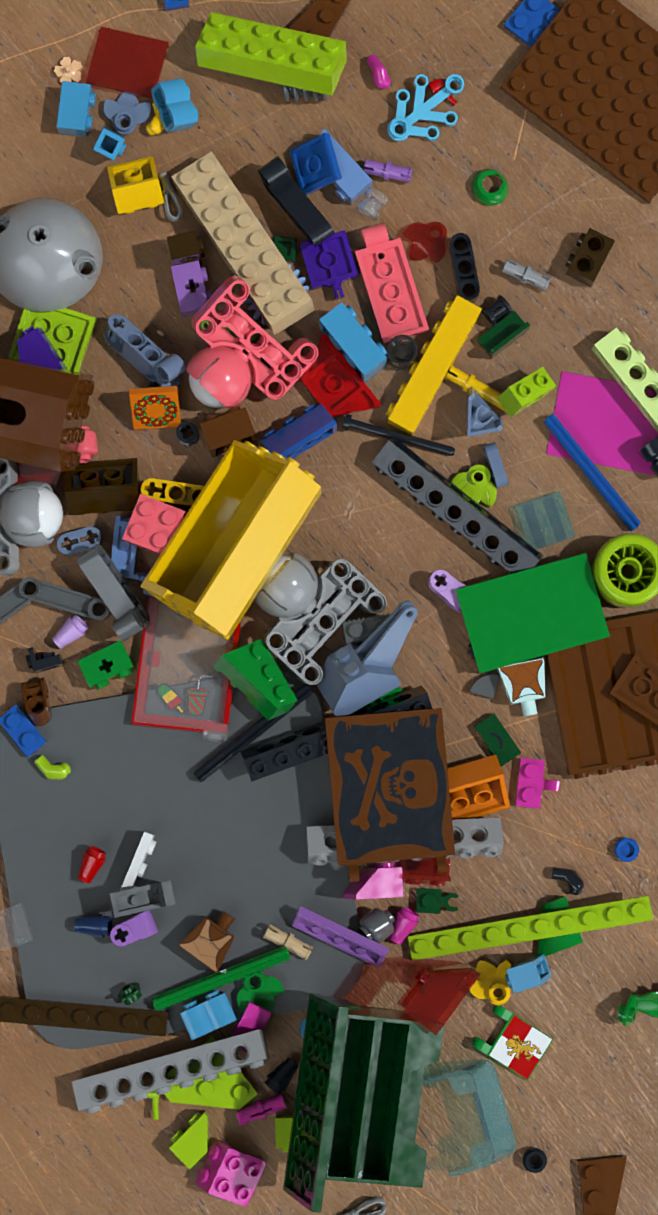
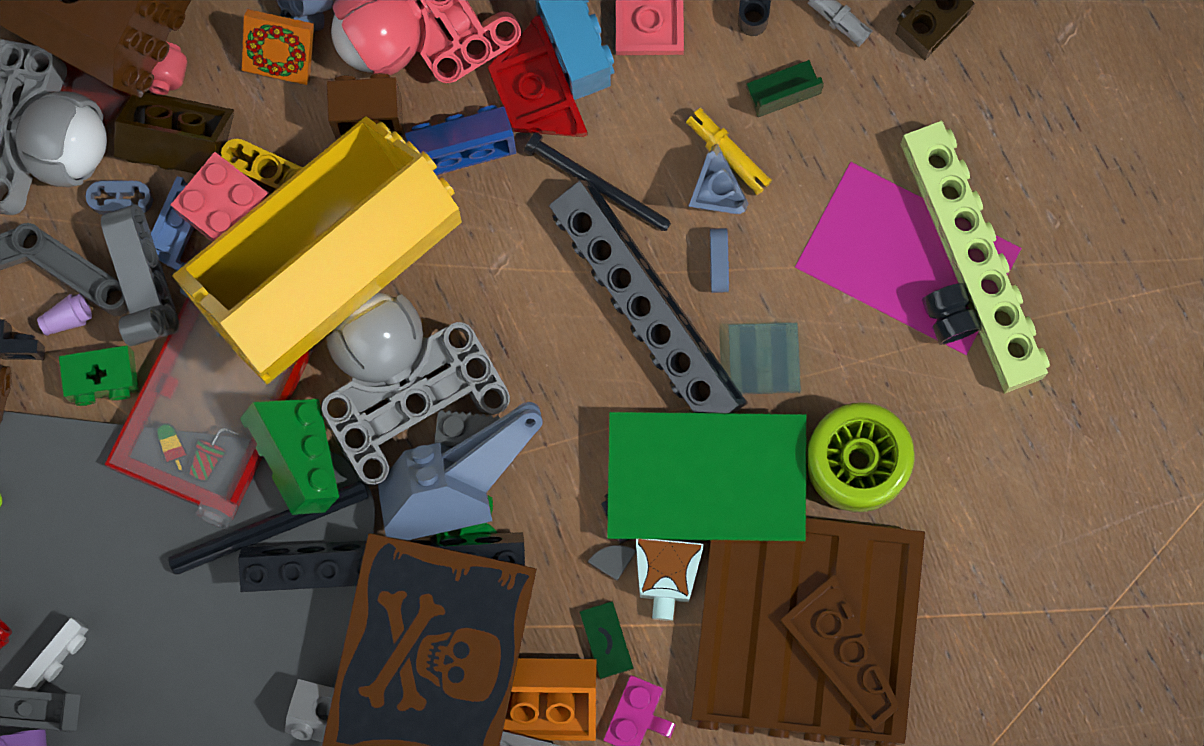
camera: 20 degrees right, 5 degrees down
(185, 426) = (312, 86): black bush -> none
(402, 352) = (636, 71): clear smoke wheel -> none
(434, 365) = (668, 107): yellow brick -> none
(447, 592) = (598, 413): lavender piece -> none
(477, 490) = (686, 289): lime plate -> none
(493, 317) = (784, 52): black bush -> none
(526, 392) = (791, 172): lime brick -> none
(592, 472) = (850, 310): blue axle -> none

